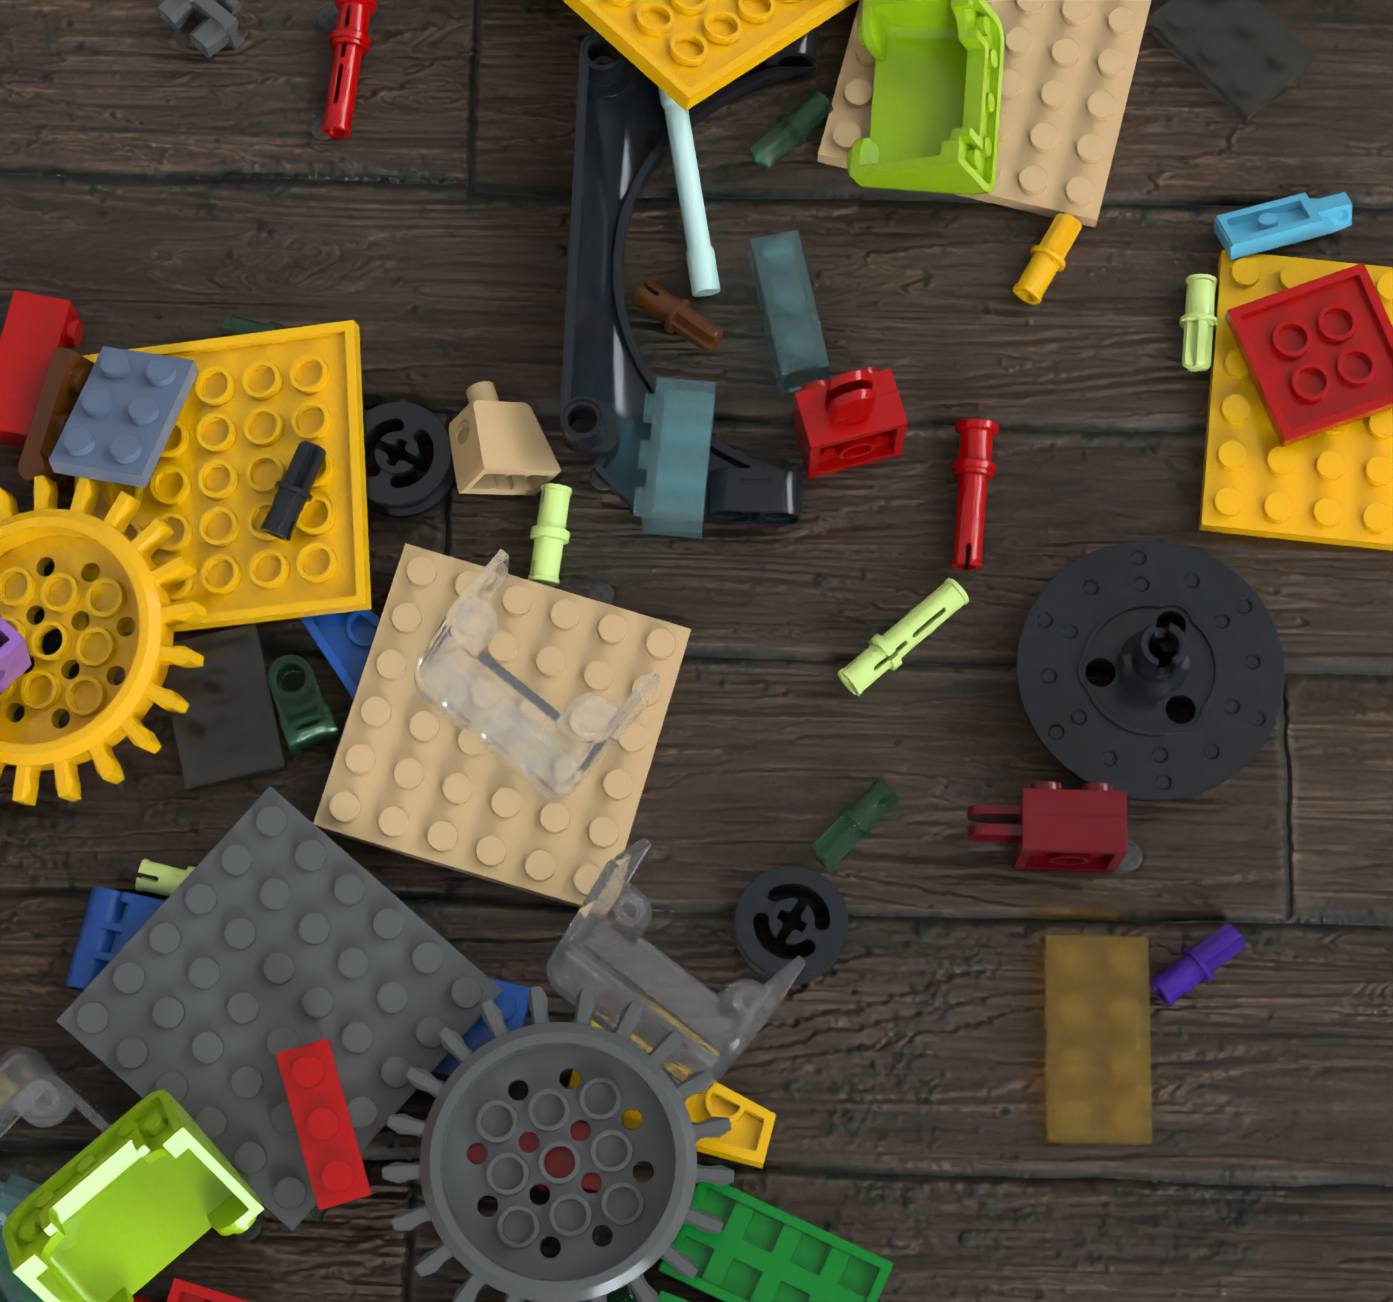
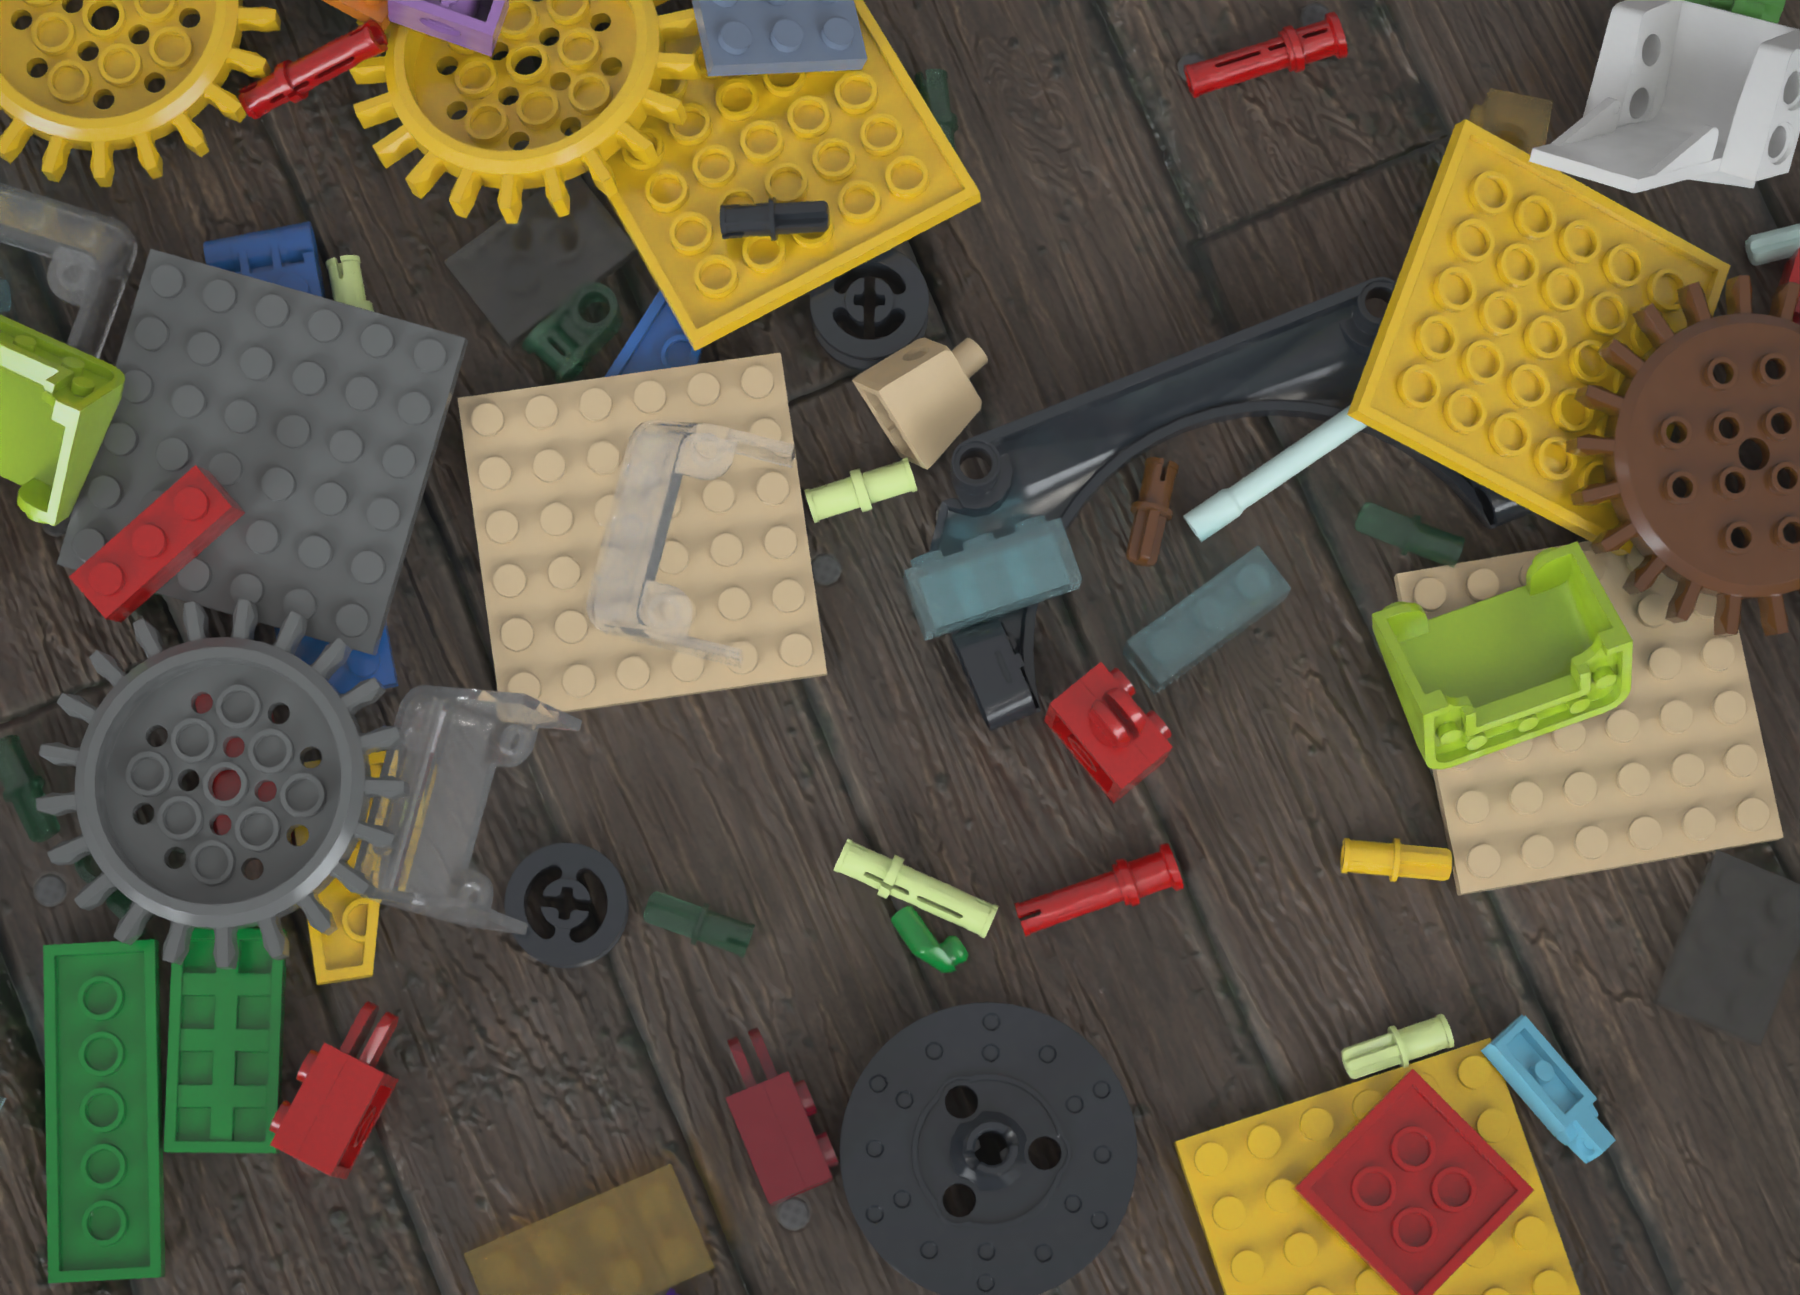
camera: 60 degrees right, 5 degrees up
(874, 1184) = (338, 1098): none -> red brick
(952, 650) = (924, 945): none -> green arm

